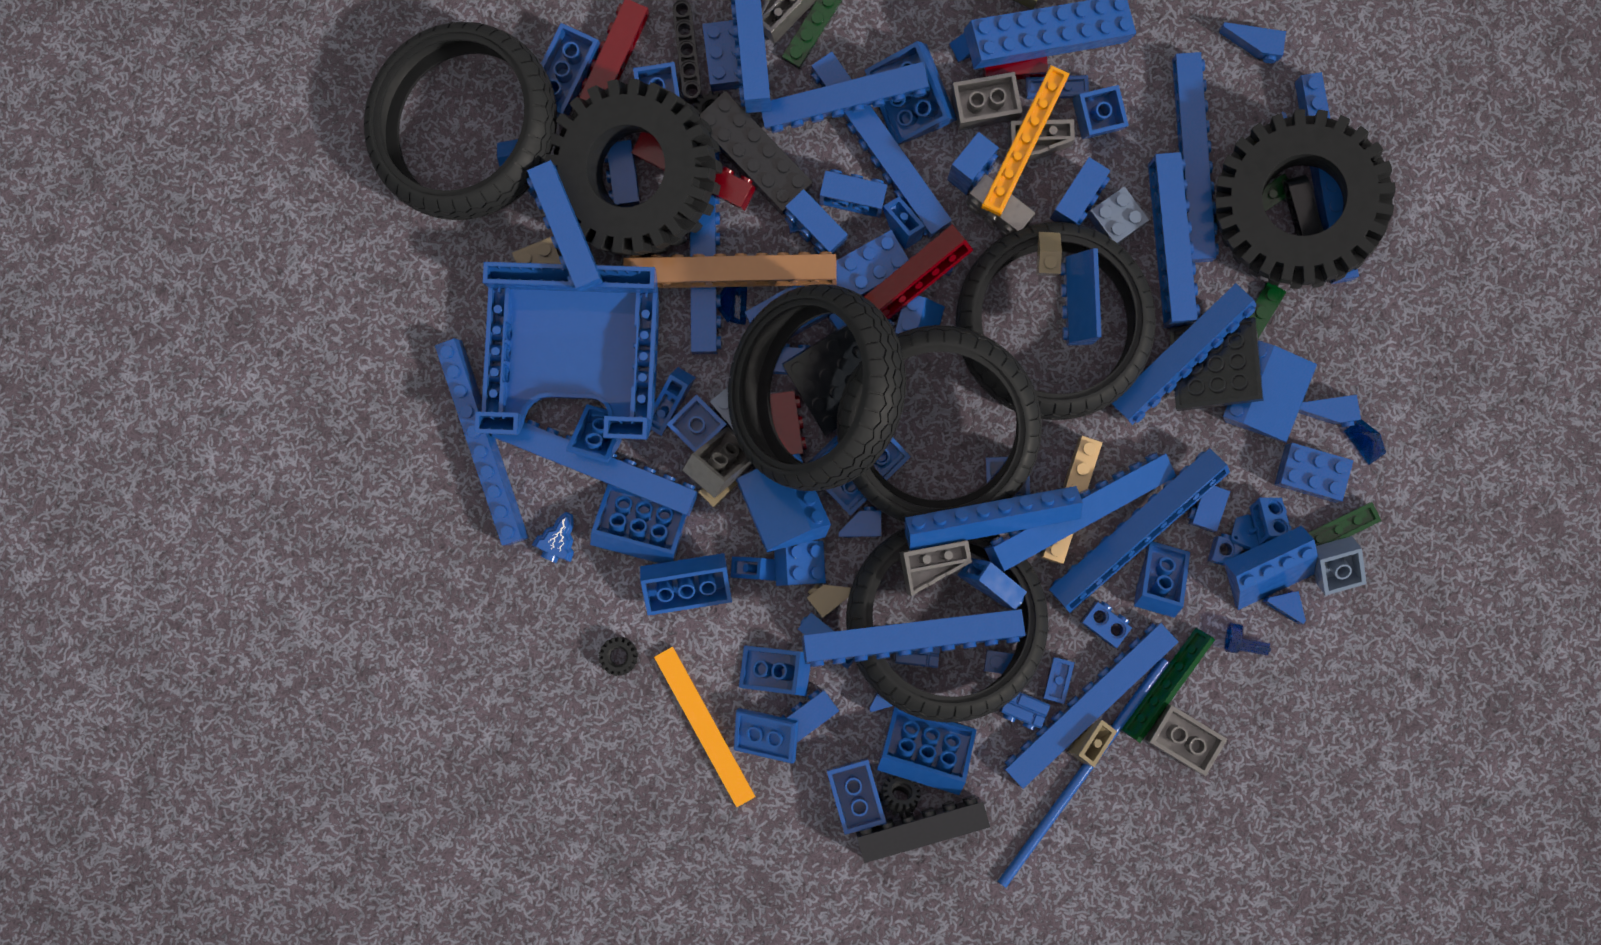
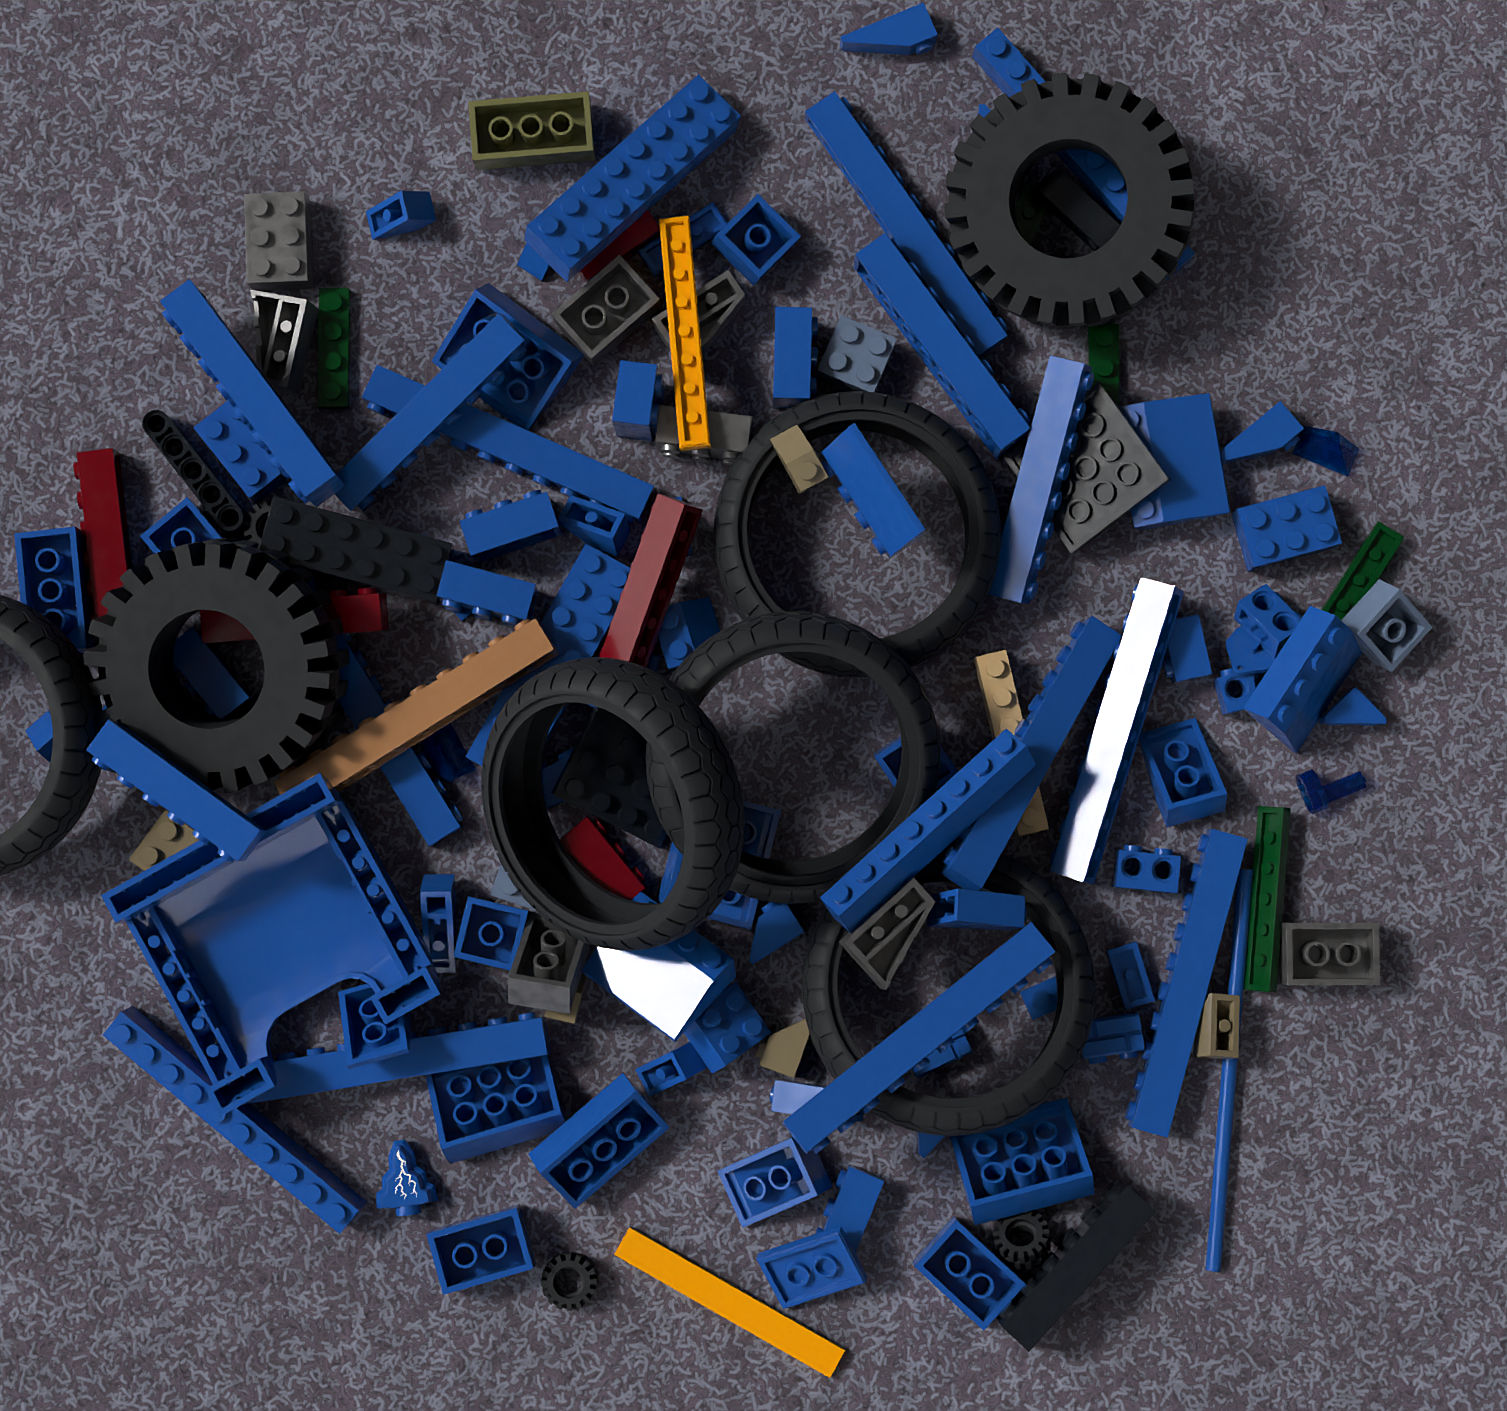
camera: 30 degrees left, 0 degrees up
(578, 605) = (481, 1249): none -> blue brick

